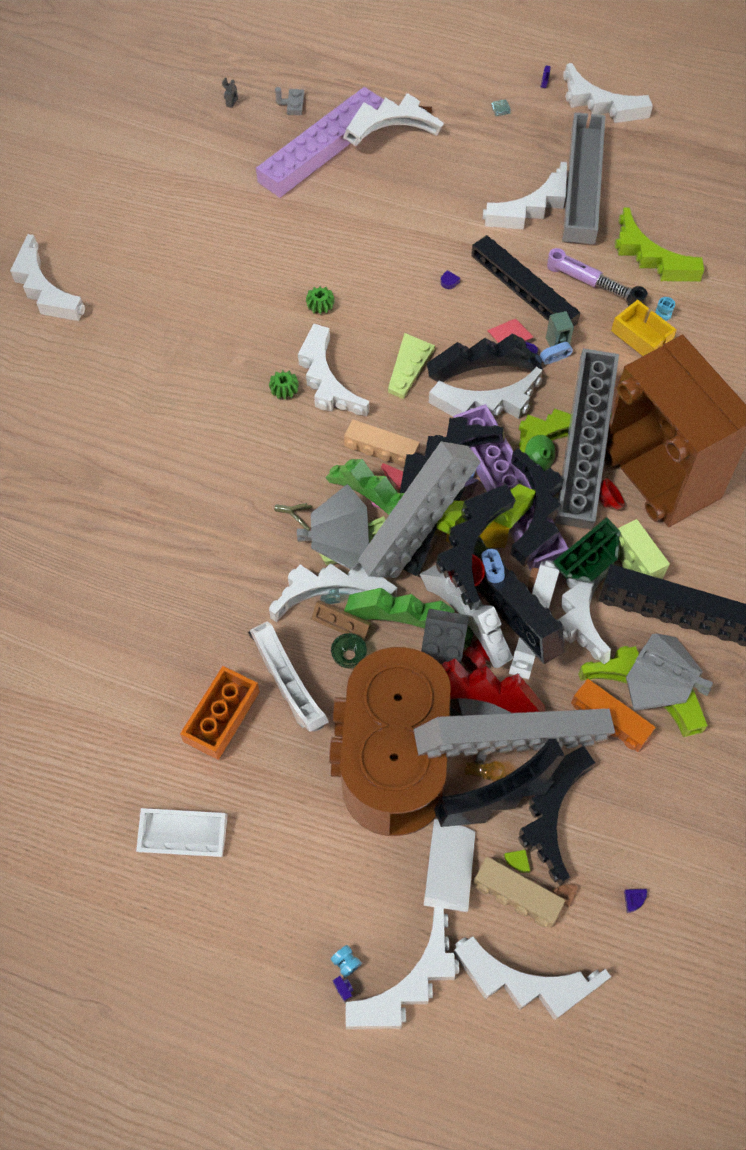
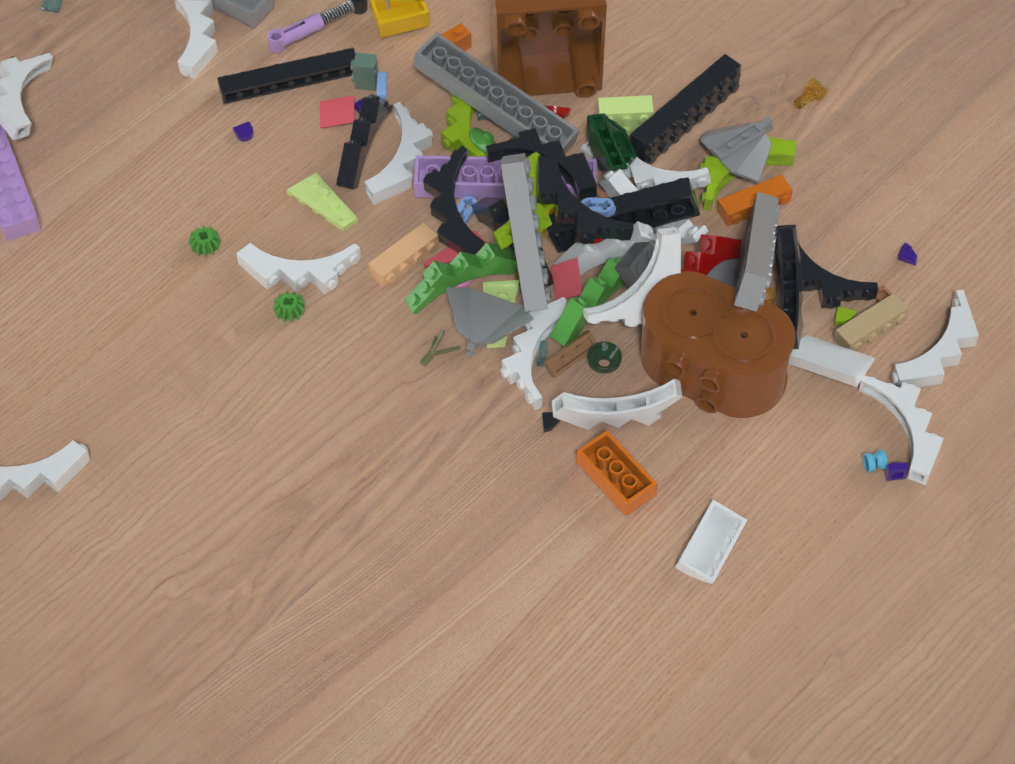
camera: 65 degrees left, 5 degrees down
(417, 580) = (566, 279): none -> coral piece
(442, 646) = (630, 304): none -> white arch

